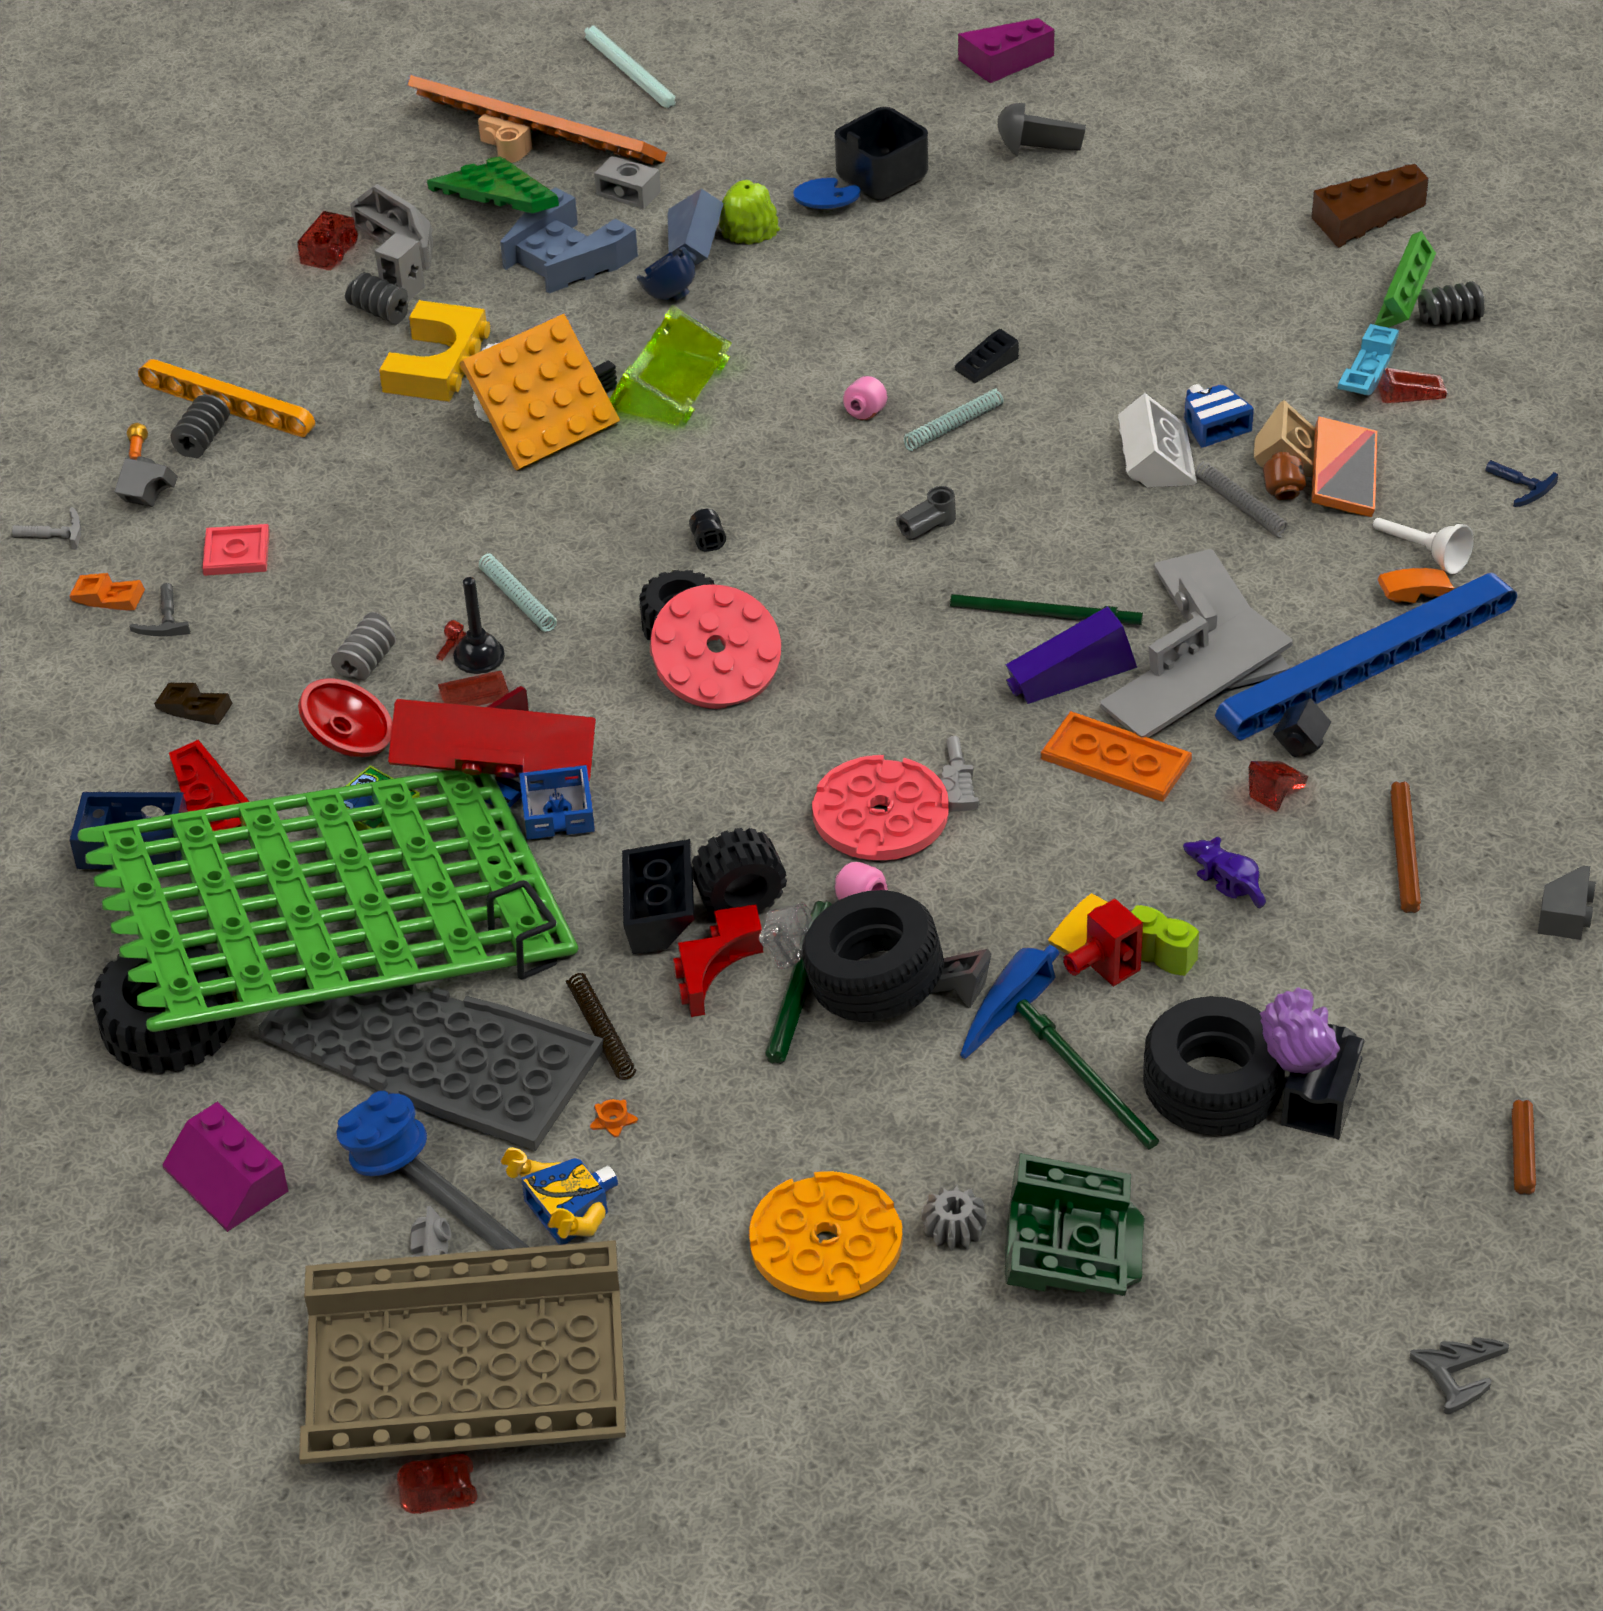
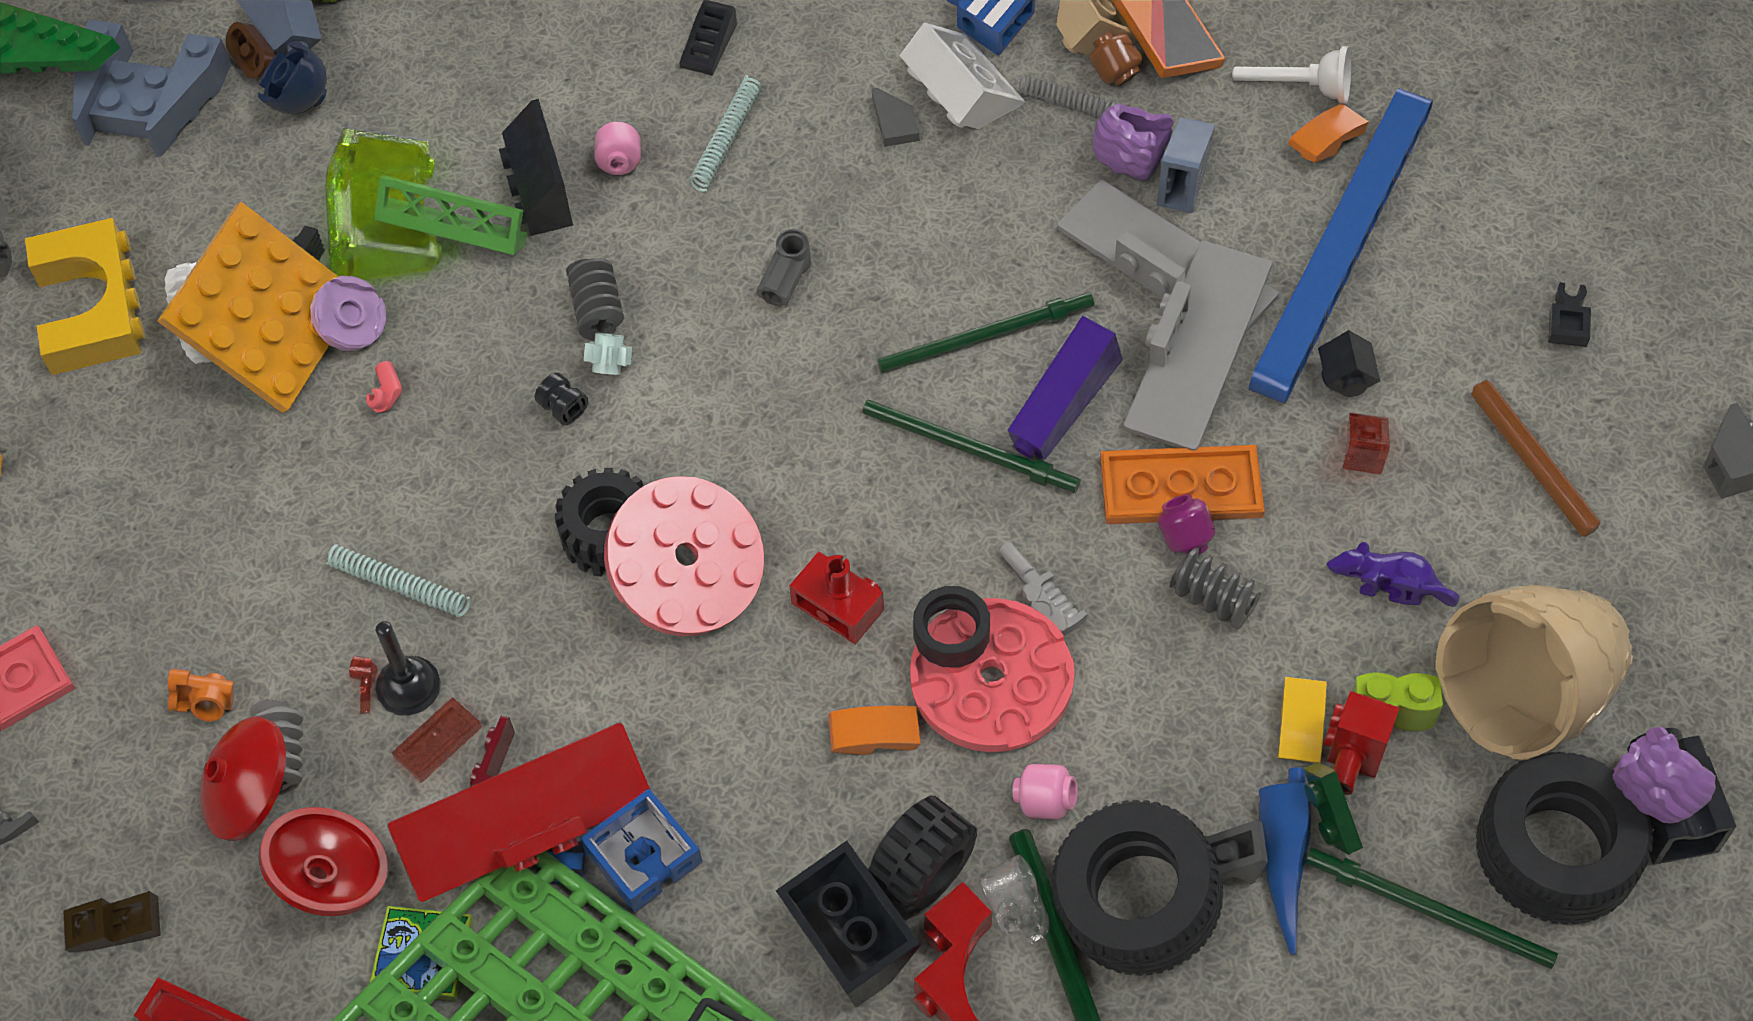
camera: 30 degrees left, 15 degrees up
(326, 647) = (242, 778): none -> red dish
(339, 601) = (205, 695): none -> orange plate
(596, 483) = (388, 391): none -> coral arm
(599, 424) = (348, 313): none -> lavender tile
(654, 246) = (248, 49): none -> reddish brown plate
(707, 395) = (446, 222): none -> bright green fence
(760, 515) = (607, 353): none -> light aqua gear
(777, 480) = (594, 296): none -> dark grey piece
(777, 804) = (873, 727): none -> orange slope
(794, 390) = (535, 172): none -> black slope
(806, 716) = (837, 596): none -> red brick
(868, 777) = (957, 599): none -> black tyre
(1013, 704) = (1039, 471): none -> dark green bar
(1052, 958) = (1328, 797): none -> dark green plate
(1084, 821) = (1215, 589): none -> dark grey piece
(1086, 457) = (895, 119): none -> dark grey tile
(1092, 774) = (1186, 524): none -> magenta head
(1251, 528) = (1131, 140): none -> medium lavender hair
(1272, 934) = (1532, 666): none -> tan piece
(1280, 558) = (1185, 164): none -> sand blue slope
(1509, 773) = (1569, 319): none -> black plate

